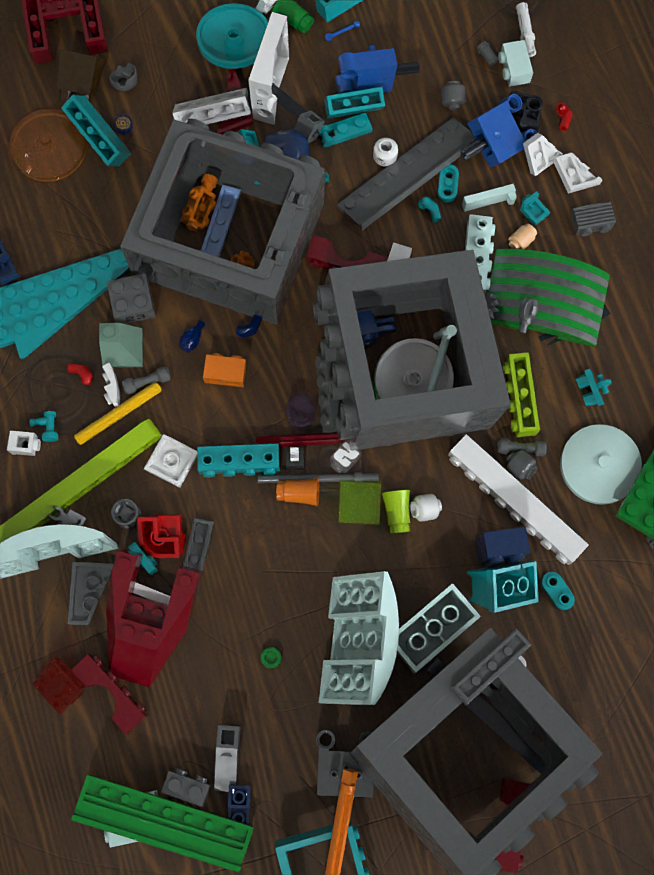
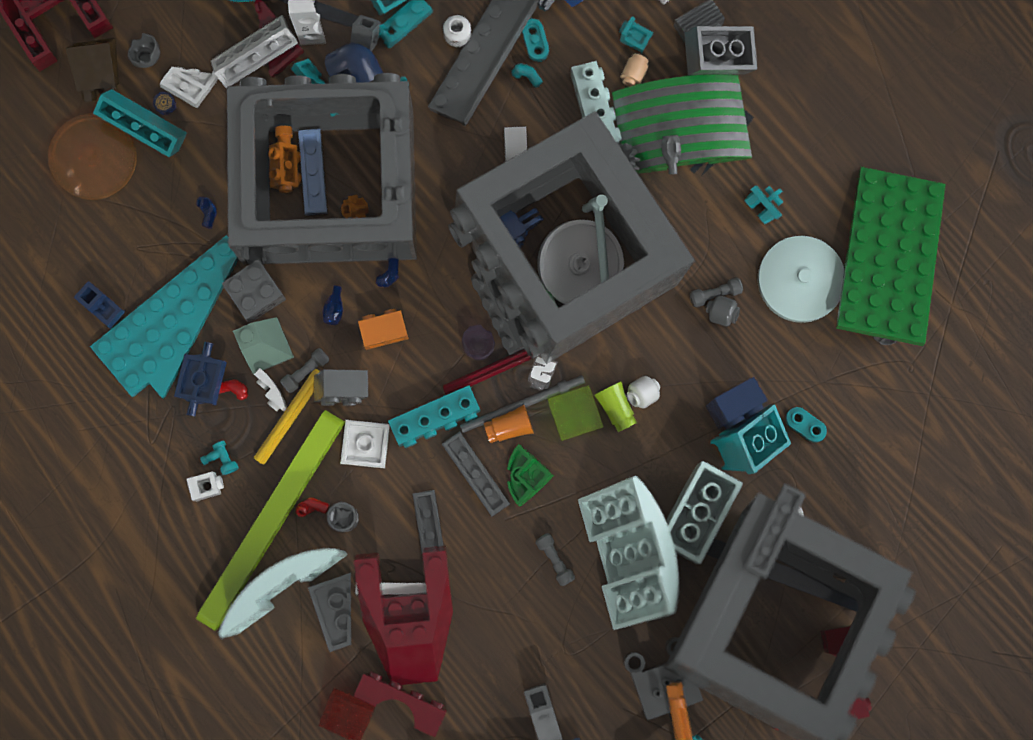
camera: 25 degrees left, 5 degrees up
(57, 354) = (200, 379): none -> dark blue plate
(68, 517) = (285, 546): dark grey plate -> none
(103, 493) = (310, 505): none -> red arm
(123, 221) = (208, 209): none -> clear blue arm
(147, 561) = (385, 556): teal plate -> none
(149, 116) = (189, 84): none -> white wing
(161, 535) = (388, 524): red brick -> none
(169, 403) = (340, 386): none -> dark grey brick
(254, 522) = (475, 474): none -> dark grey tile
(271, 657) = (547, 603): green tile -> none
(290, 604) = (545, 544): none -> dark grey piece
(295, 458) = (491, 393): pearl dark grey piece -> none
(297, 540) = (526, 475): none -> green brick
(323, 255) = (435, 167): dark red arch -> none
(490, 197) = (584, 39): light aqua hinge -> none
(517, 500) = (732, 348): white brick -> none
(522, 395) = (696, 238): lime brick -> none
(602, 245) = (720, 50): none -> dark grey brick

